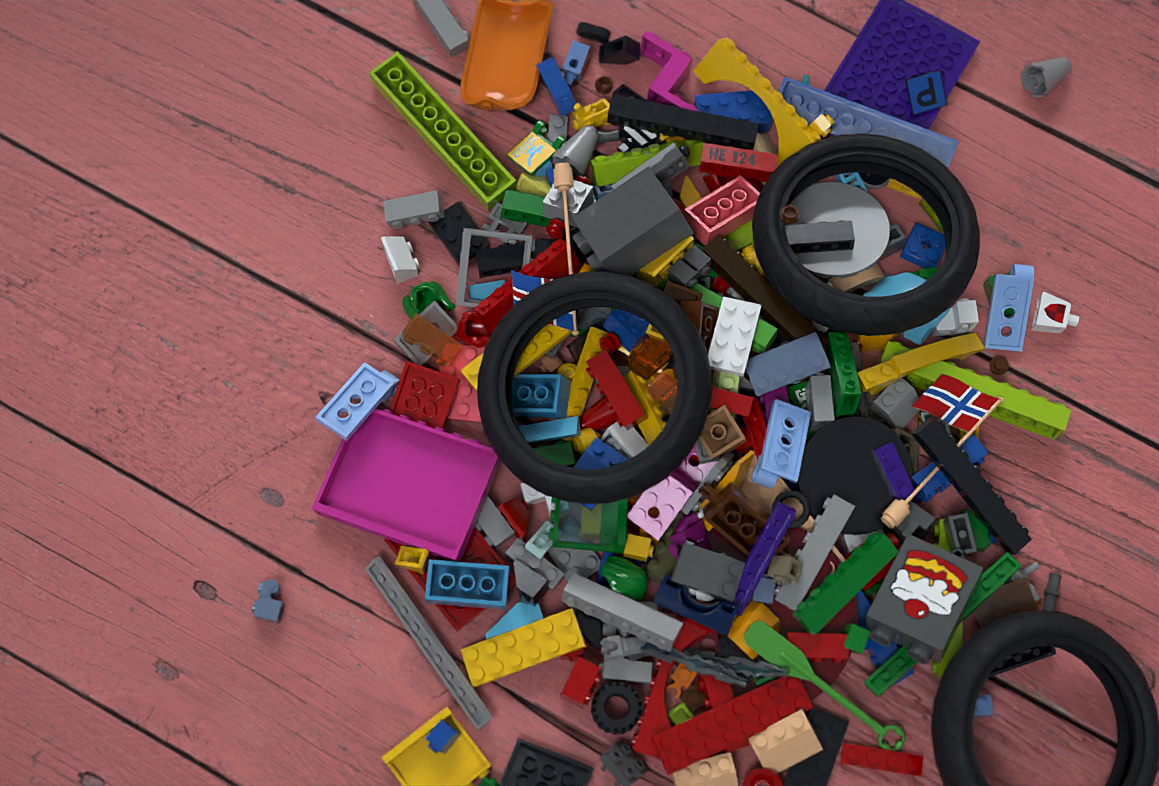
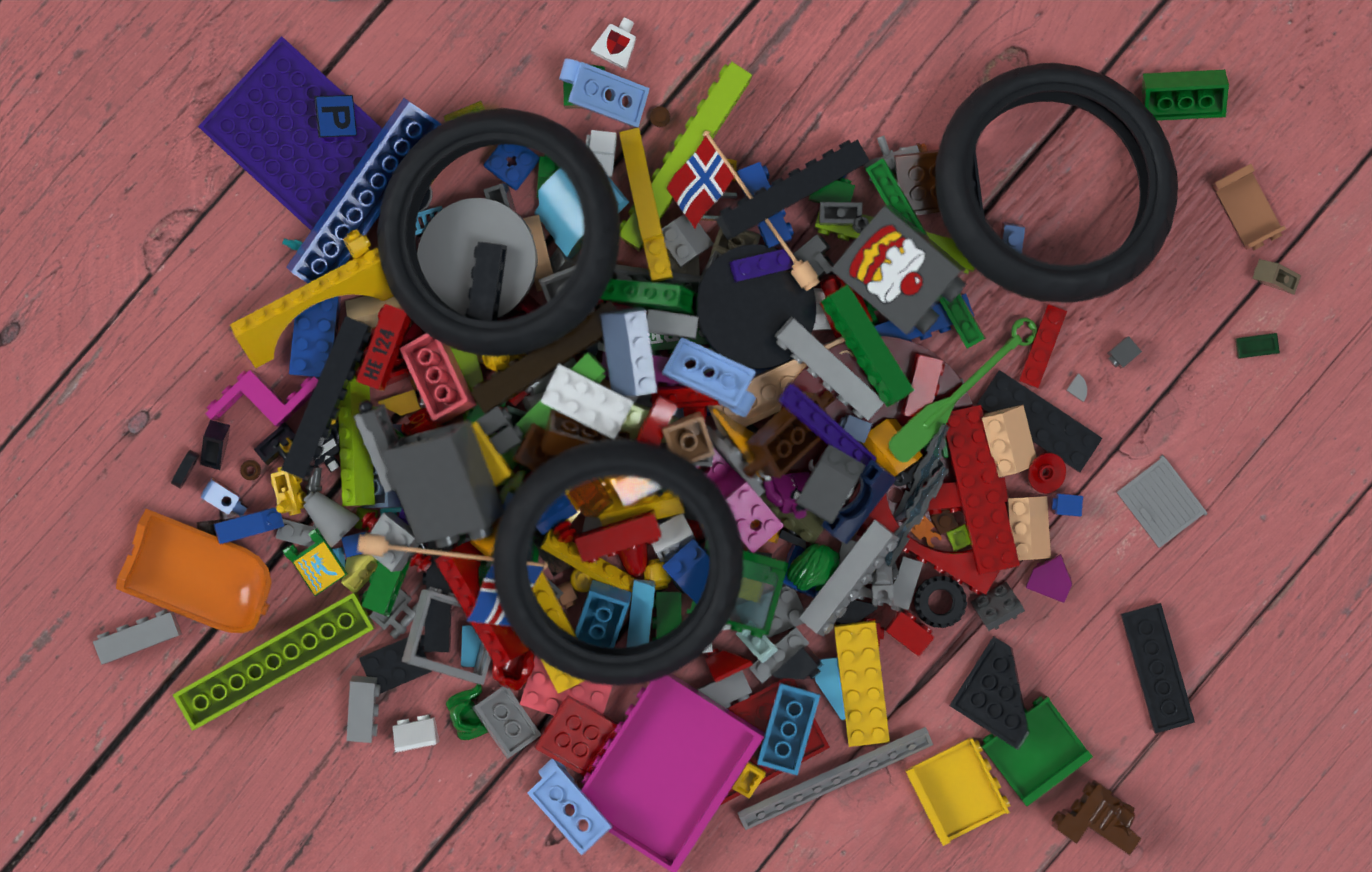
camera: 70 degrees left, 15 degrees up
(431, 340) = (520, 718): clear orange brick -> none
(442, 737) = (934, 781): blue brick -> none
(638, 548) = (785, 546): yellow brick -> none
(785, 570) = (843, 405): dark tan brick -> none
(789, 214) = (471, 314): reddish brown plate -> none
(805, 503) = (767, 372): black tyre -> none
(856, 638) = (924, 348): green panel -> none
(1051, 593) = (912, 129): dark grey pin -> none

